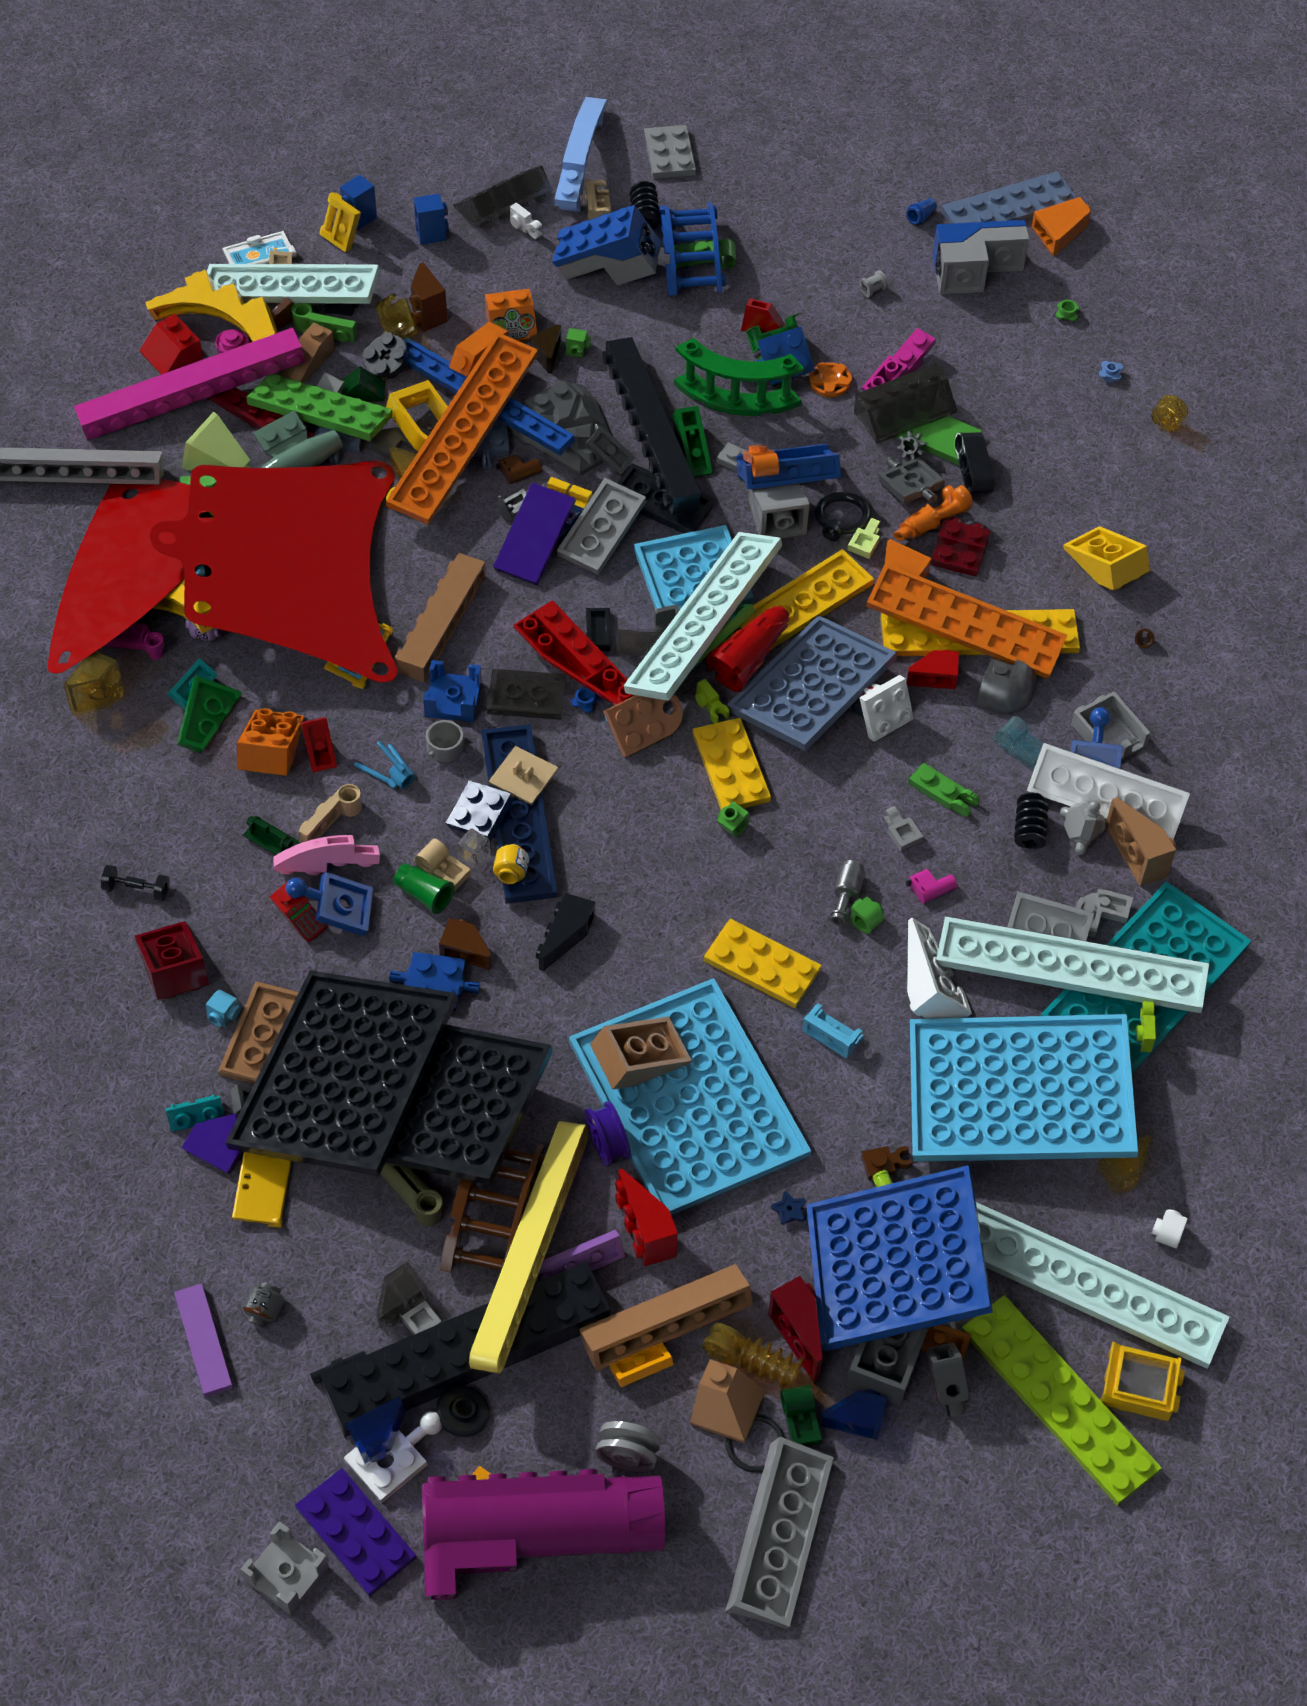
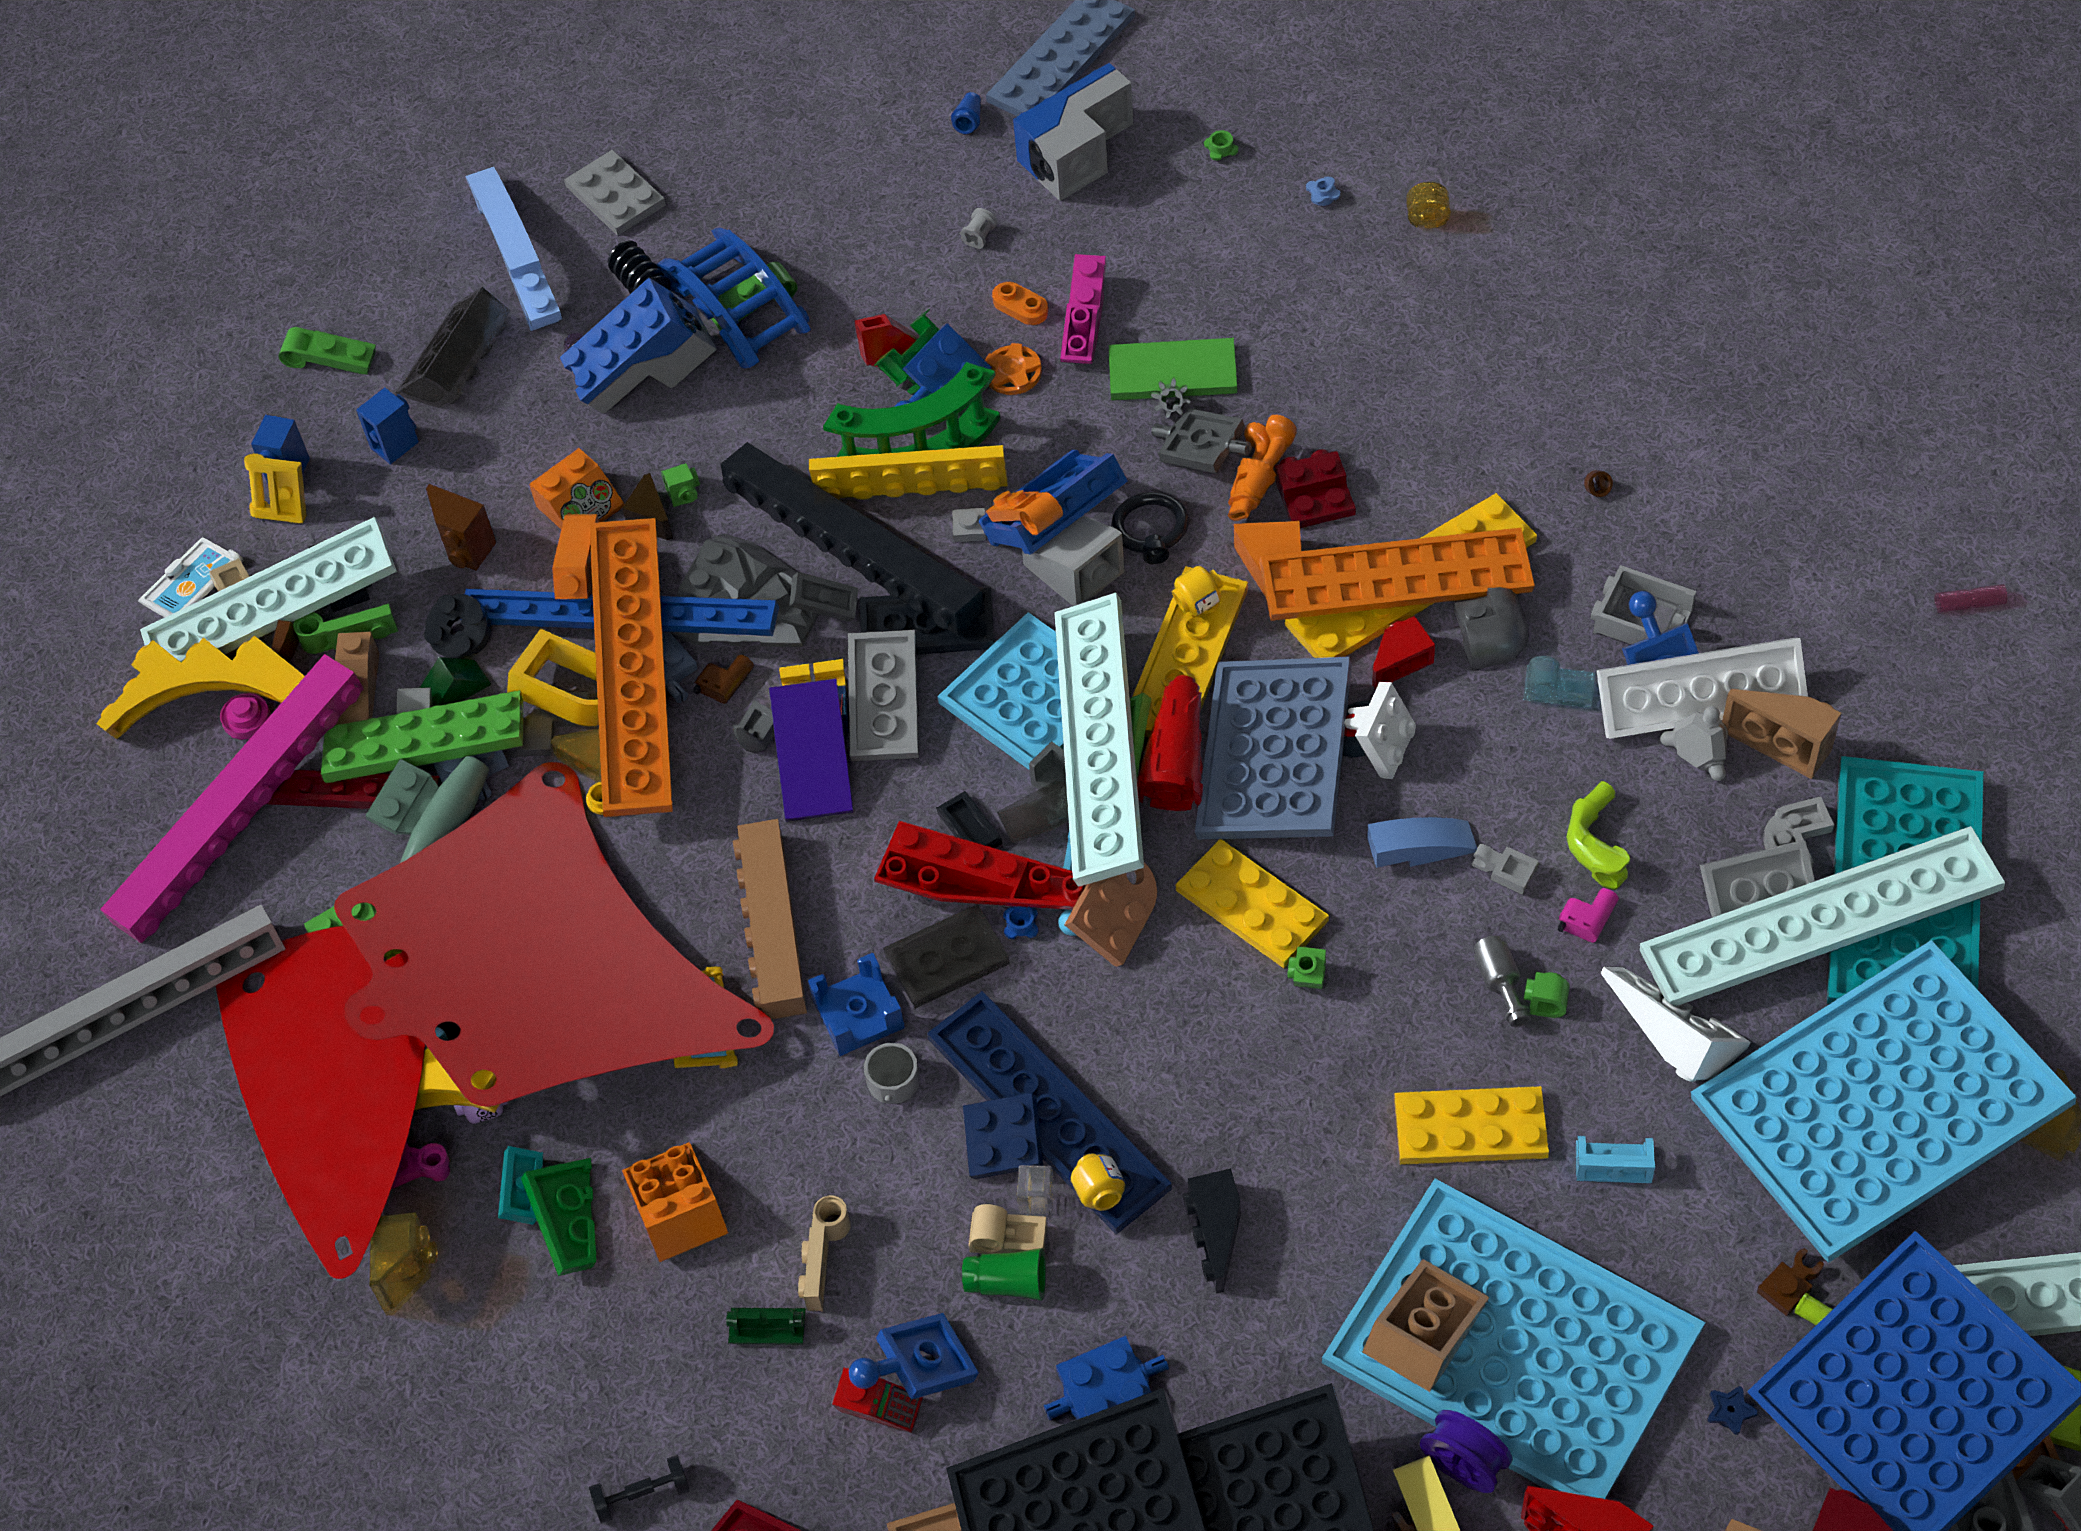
camera: 25 degrees left, 0 degrees up
(171, 345) = (169, 762): red slope -> none
(213, 446) = (330, 865): yellowish green slope -> none
(316, 853) = (846, 1311): bright pink slope -> none
(319, 744) = (742, 1169): red slope -> none
(396, 317) = (434, 571): clear yellow hinge -> none
(400, 773) = (868, 1146): dark azure plant -> none
(430, 158) = (327, 350): none -> bright green plate
(464, 942) = (1111, 1314): reddish brown slope -> none
(522, 219) = (500, 367): white plate -> none
(523, 775) = (1022, 1060): tan piece -> none
(596, 200) = (576, 300): tan hinge -> none
(692, 440) = (902, 518): green slope -> none
(709, 698) = (1170, 837): lime plate -> none
(715, 405) = (911, 472): none -> yellow plate
(834, 564) = (1197, 590): none -> yellow head
(859, 784) = (1419, 840): none -> medium blue slope
(864, 338) = (1015, 302): none -> orange plate
(865, 540) = (1201, 542): yellowish green plate -> none
(905, 403) = (1128, 352): clear smoke slope -> none
(943, 790) = (1515, 791): bright green hinge -> none
(965, 861) = (1605, 862): none -> lime piece
(974, 462) = (1257, 380): black beam -> none
(1031, 821) = (1643, 772): black piece -> none
(1061, 223) = (1138, 46): orange slope -> none
(1109, 557) = (1488, 409): yellow slope -> none
(1146, 1031) = (1962, 944): lime plate -> none

